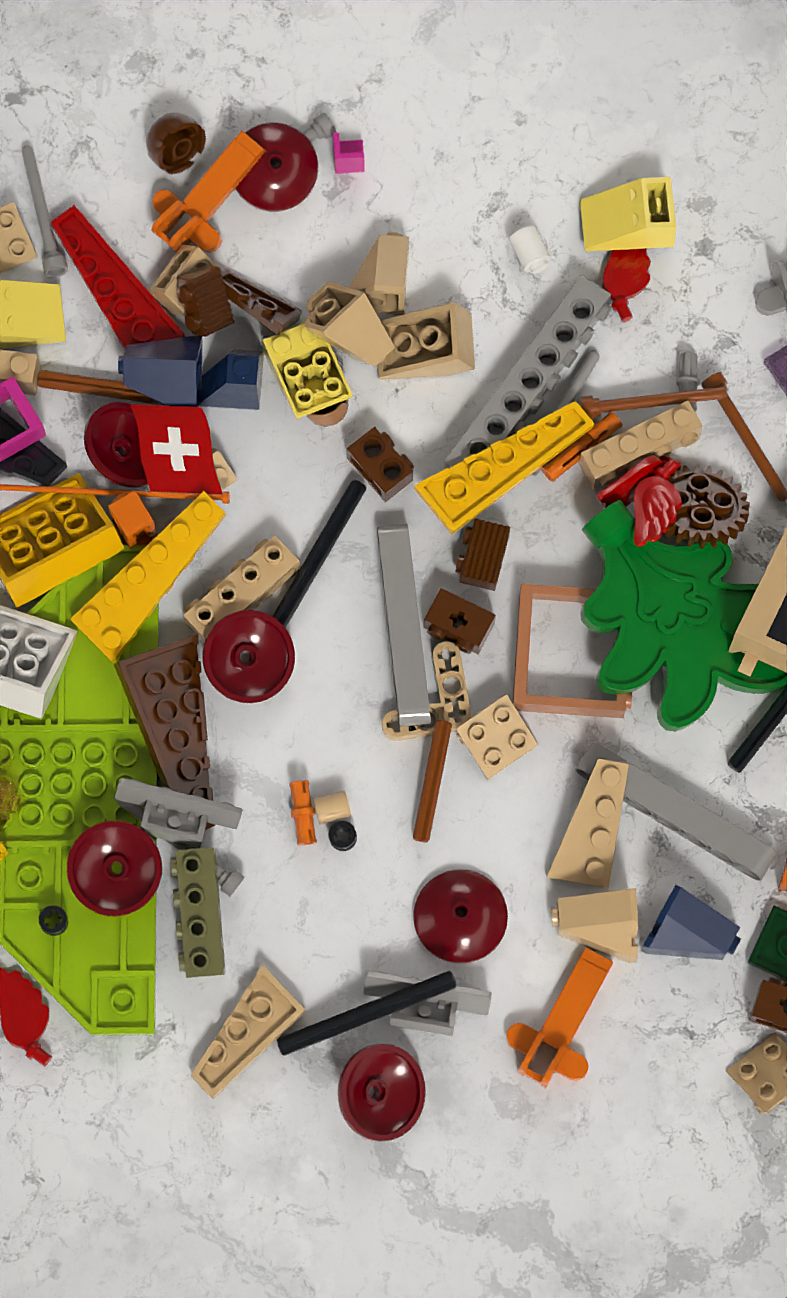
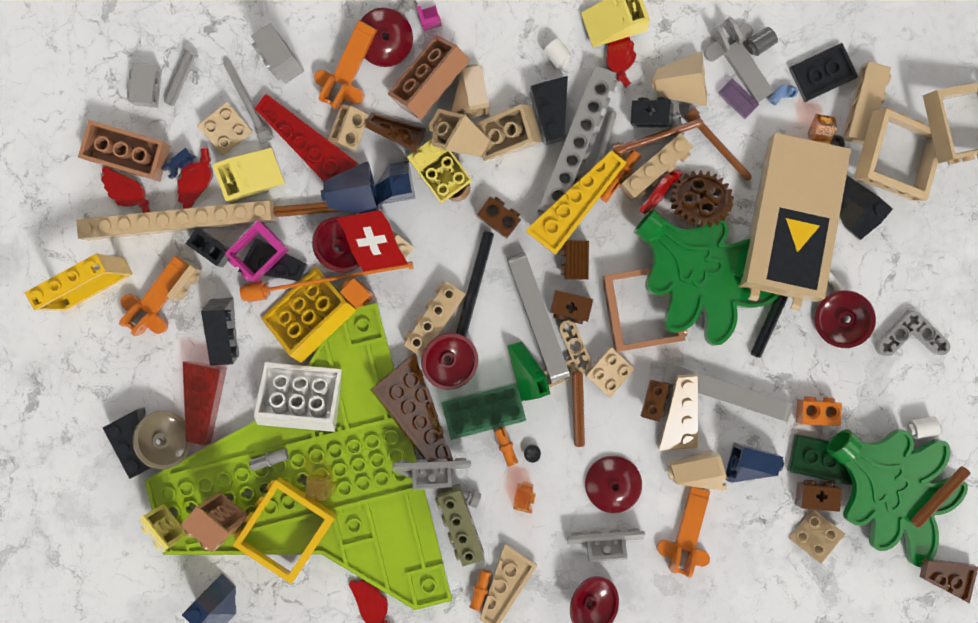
camera: 15 degrees left, 15 degrees up
(59, 927) = (370, 555): black bush -> none
(92, 874) = (401, 525): dark red dish -> none
(108, 150) = (276, 54): none -> light grey brick
(132, 595) = (369, 340): yellow wing -> none
(174, 142) = (317, 36): reddish brown cylinder -> none
(204, 300) = (364, 139): reddish brown brick -> none
(204, 1029) = (480, 589): none -> orange pin
(282, 744) = (483, 410): none -> clear green brick
(311, 898) = (524, 497): none -> clear orange brick
(325, 235) = (428, 76): none -> nougat brick
(332, 807) = (522, 439): tan piece -> none
(366, 708) = (528, 374): none -> green slope
(366, 1013) = (574, 560): black axle -> none
(500, 318) = (550, 108): none -> black wedge
(555, 791) = (654, 401): none -> reddish brown bracket
(652, 364) = (661, 118): none -> black brick
(655, 504) = (677, 207): red animal -> none
(711, 329) = (682, 80): none -> tan slope

